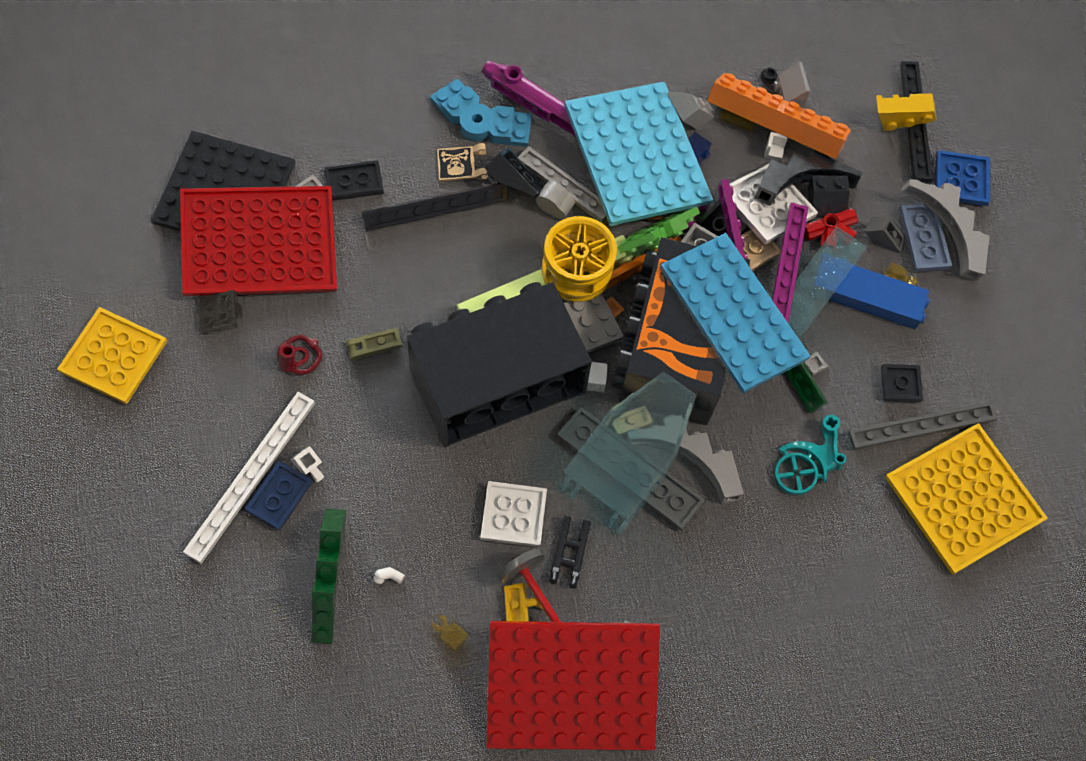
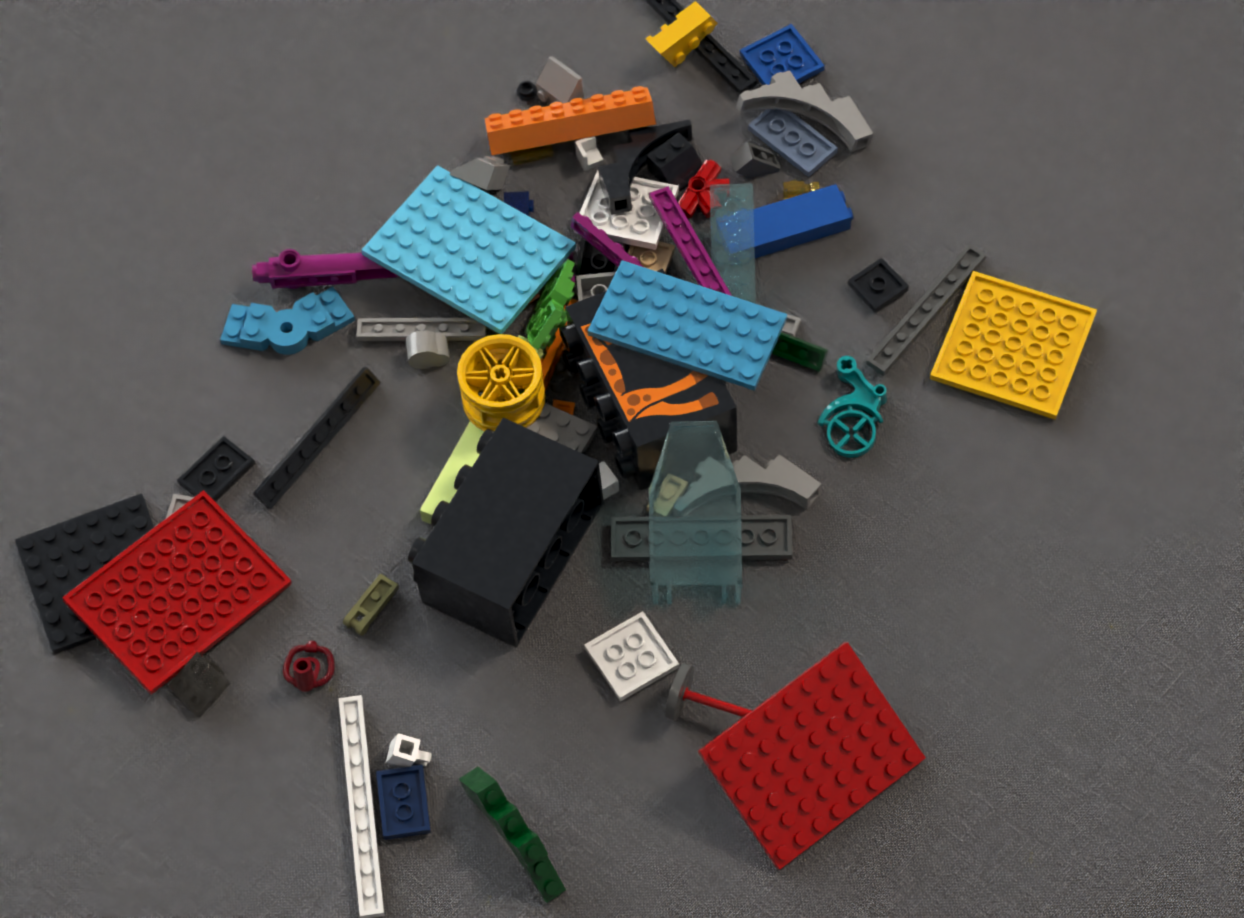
camera: 25 degrees left, 5 degrees down
(112, 355) = (130, 799): yellow plate -> none
(387, 573) = (563, 792): white arm -> none
(451, 634) = (668, 799): clear yellow plate -> none
(459, 163) = (304, 383): flag -> none
(512, 172) = (366, 353): black slope -> none
(517, 602) = (702, 728): yellow plate -> none
(579, 545) = (712, 638): black piece -> none

